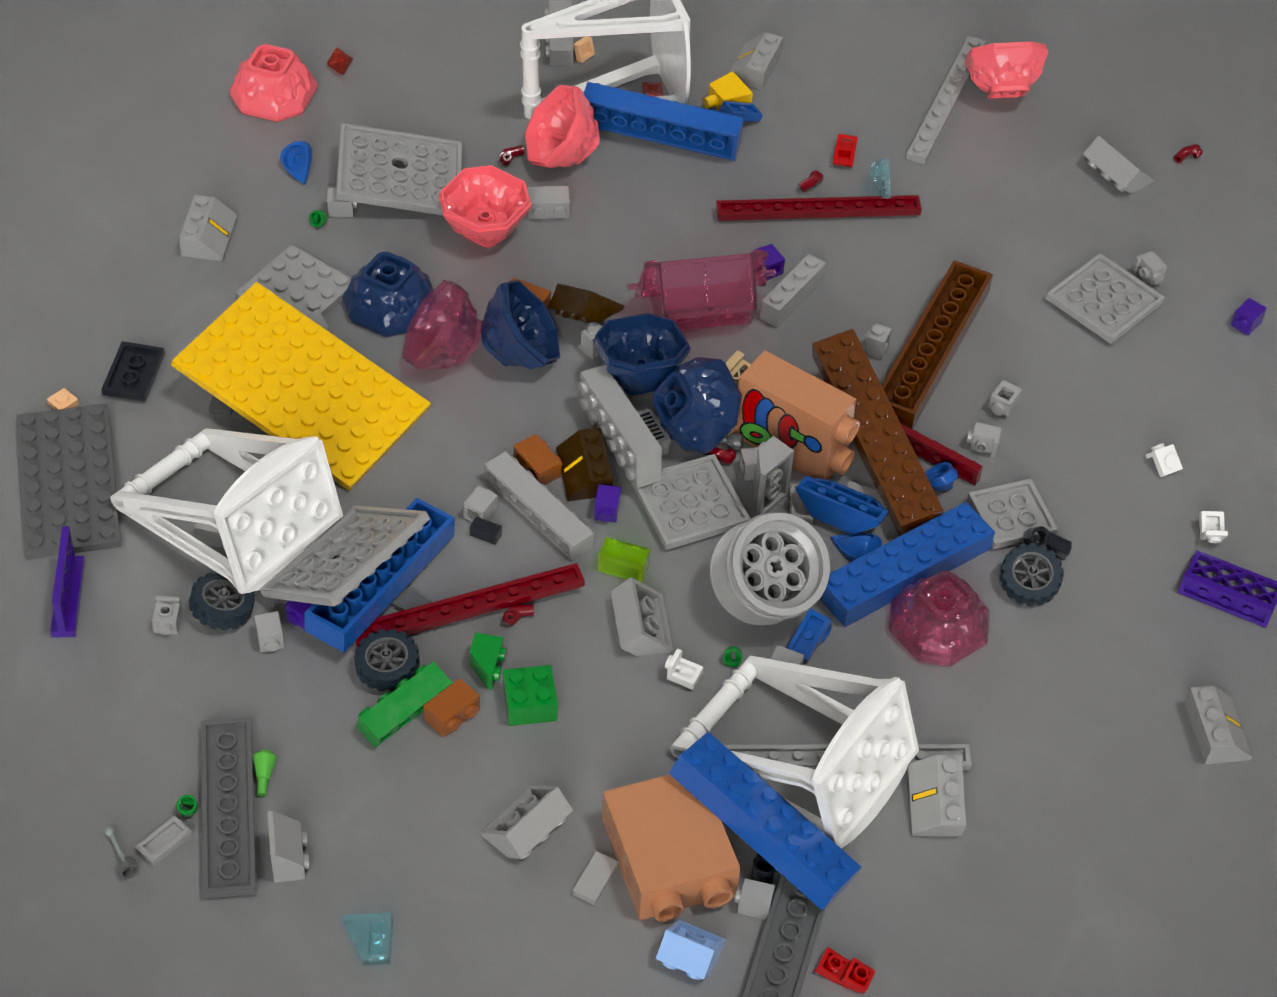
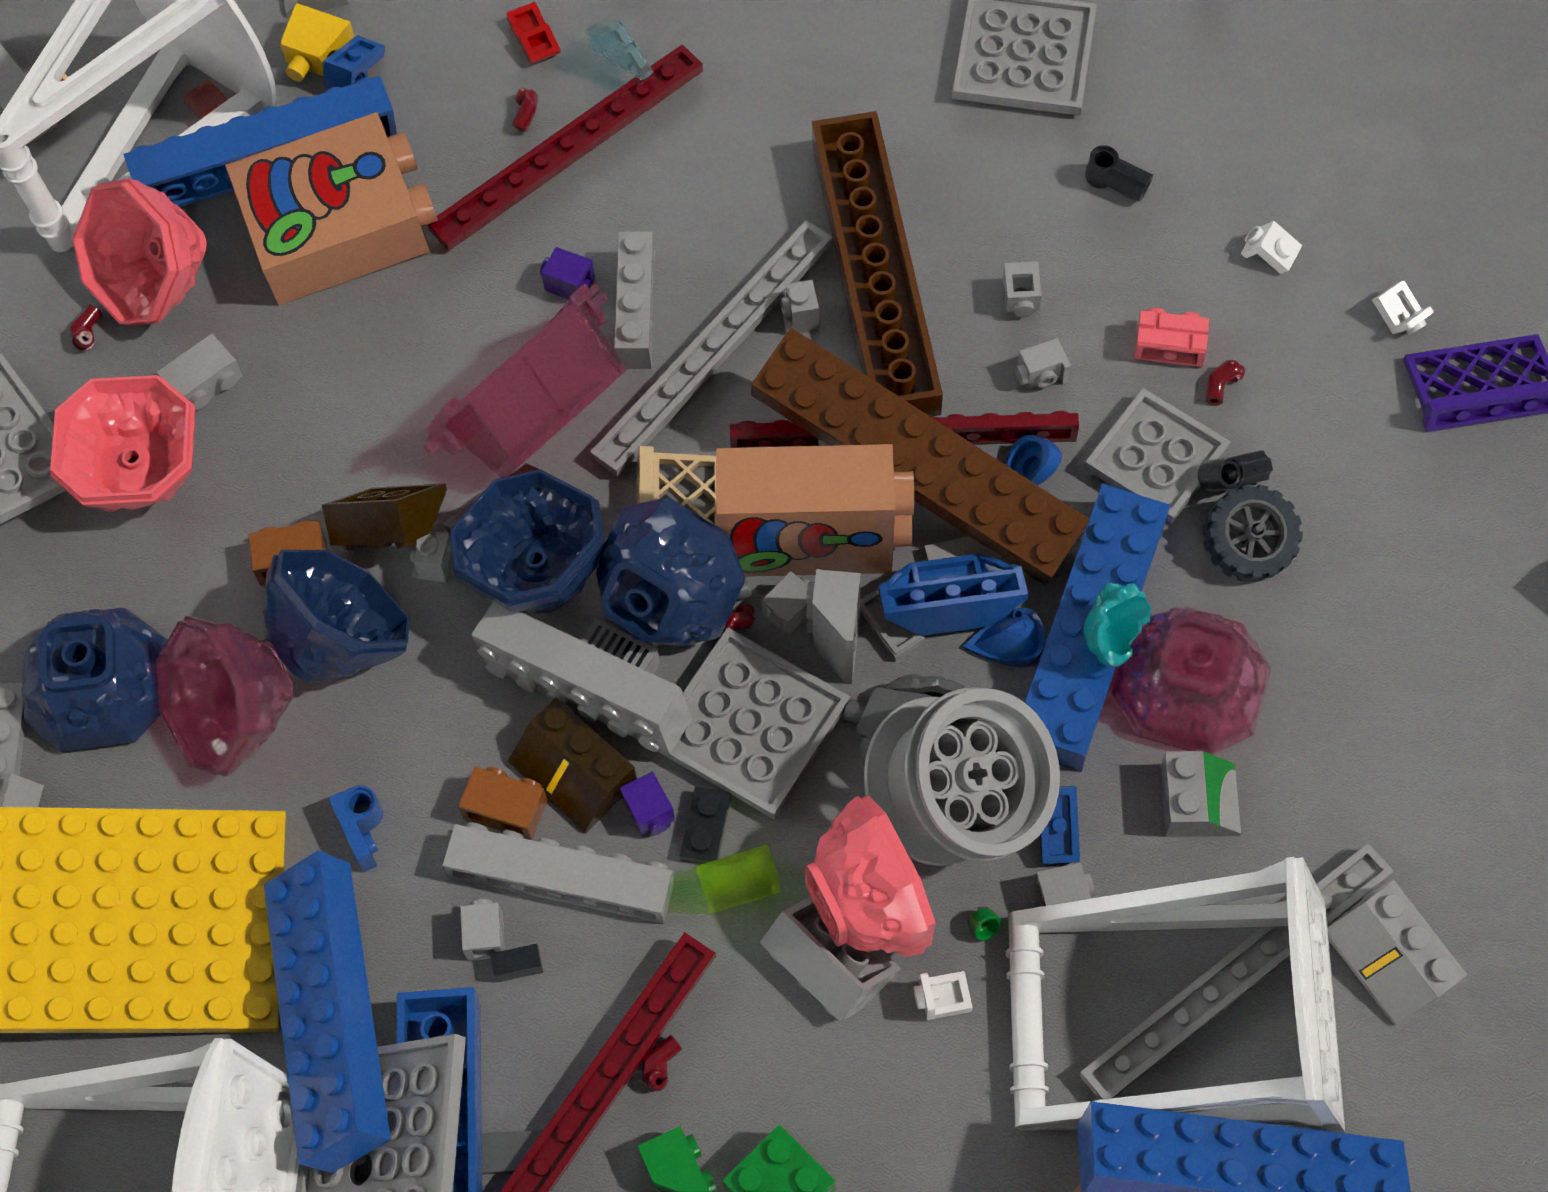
camera: 30 degrees left, 15 degrees up
(376, 482) = (325, 1014): none -> blue brick
(462, 424) = (356, 824): none -> blue plate
(631, 529) = (705, 826): none -> black plate
(673, 165) = (332, 207): none -> nougat brick
(680, 587) = (869, 884): none -> coral rock
(805, 335) = (710, 349): none -> light grey plate
(898, 660) = (1199, 795): none -> light grey slope
(912, 555) = (1116, 622): none -> teal hair
(1068, 466) = (1171, 337): none -> coral brick
(1077, 501) = (1219, 377): none -> dark red arm
(1103, 376) = (1117, 174): none -> black piece

